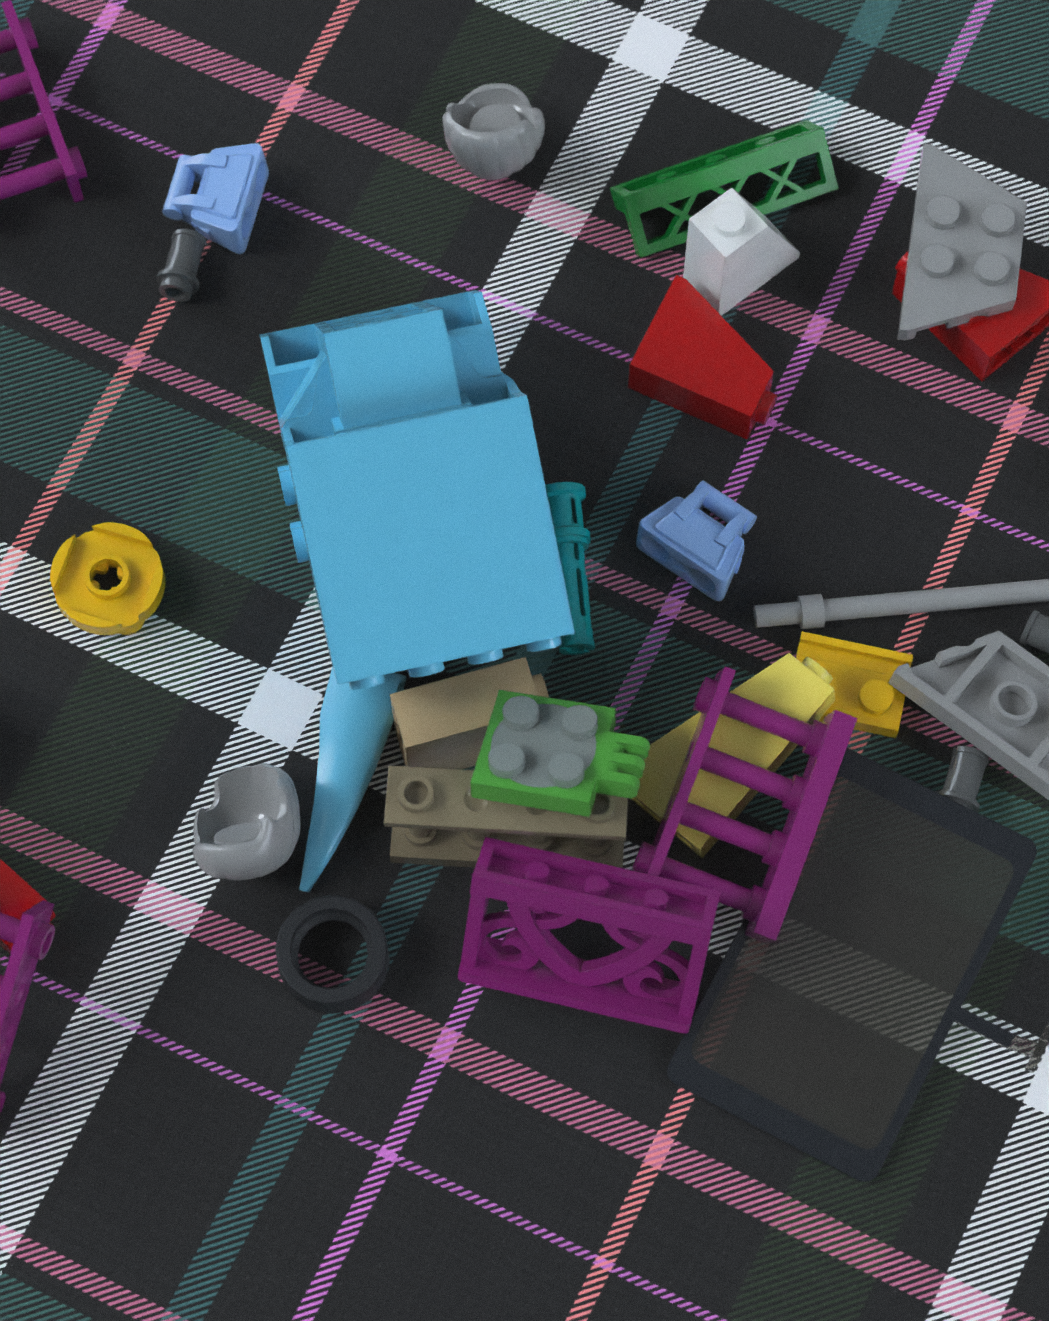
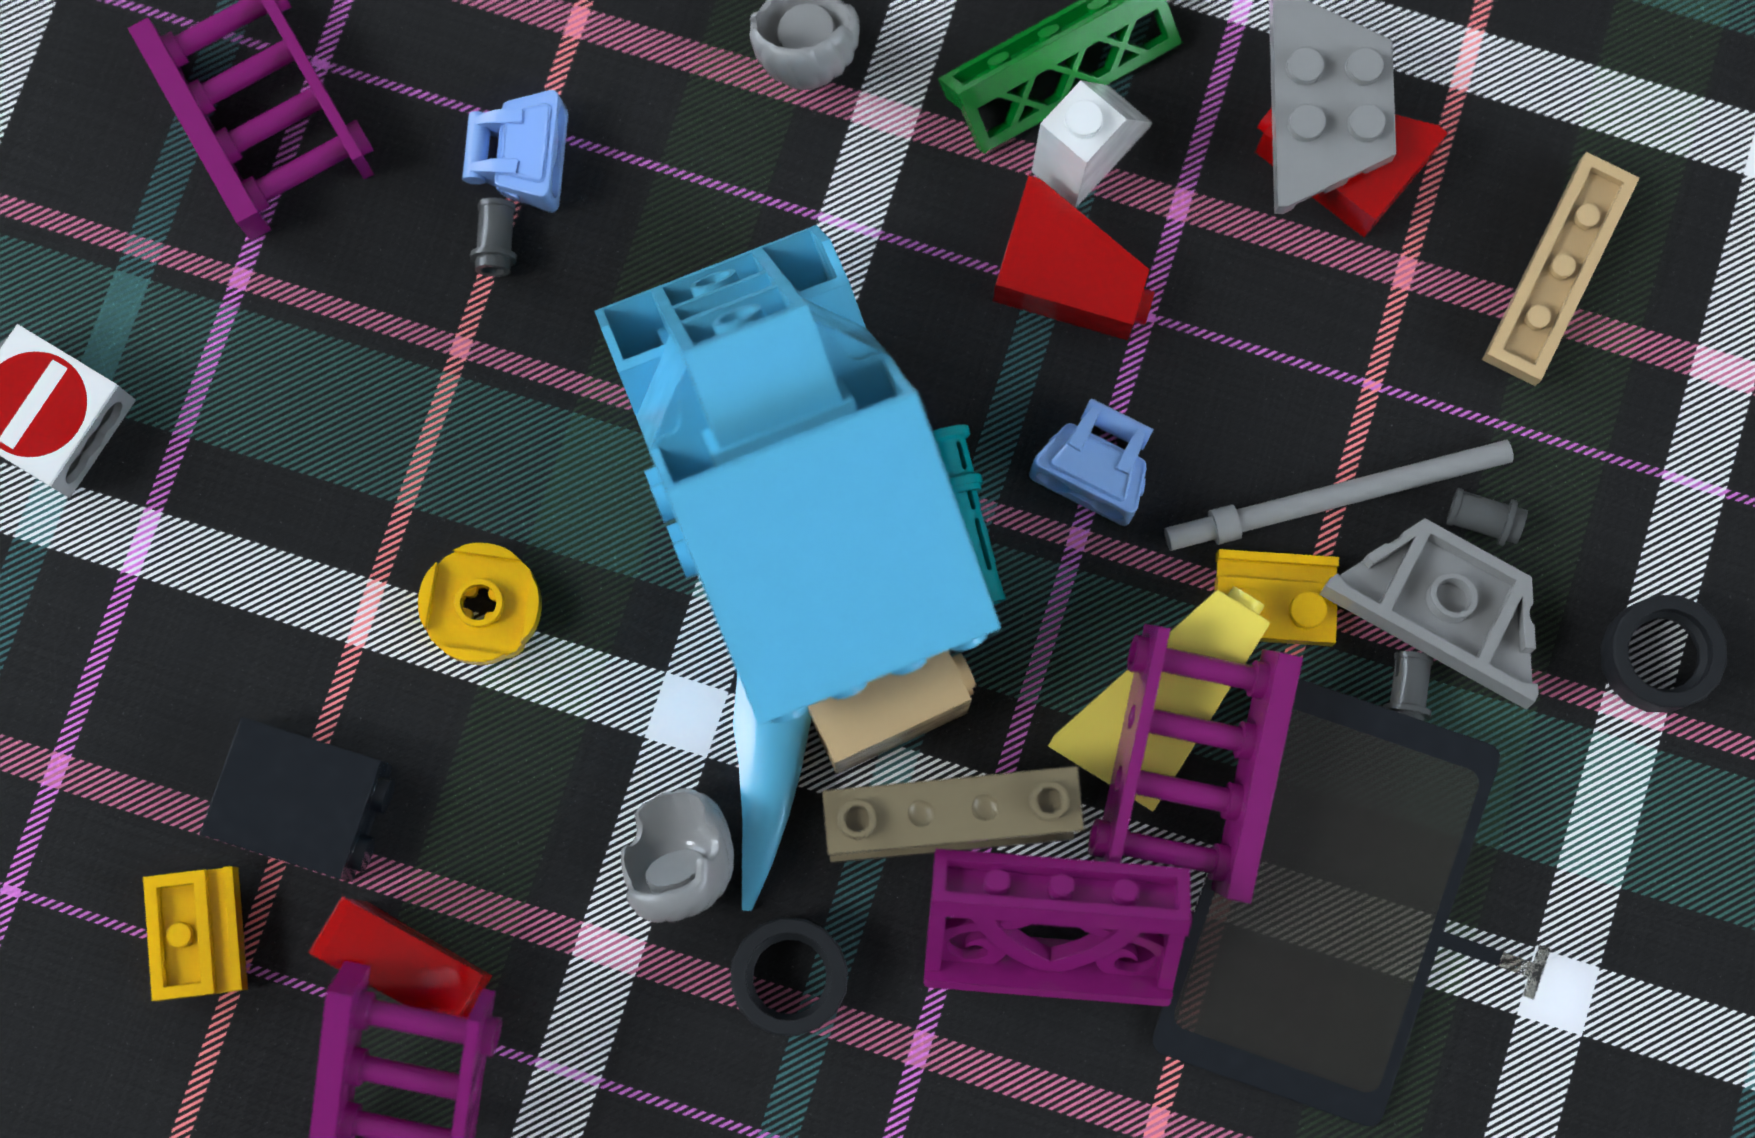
camera: 10 degrees left, 10 degrees up
(556, 755) = (997, 754): piece -> none

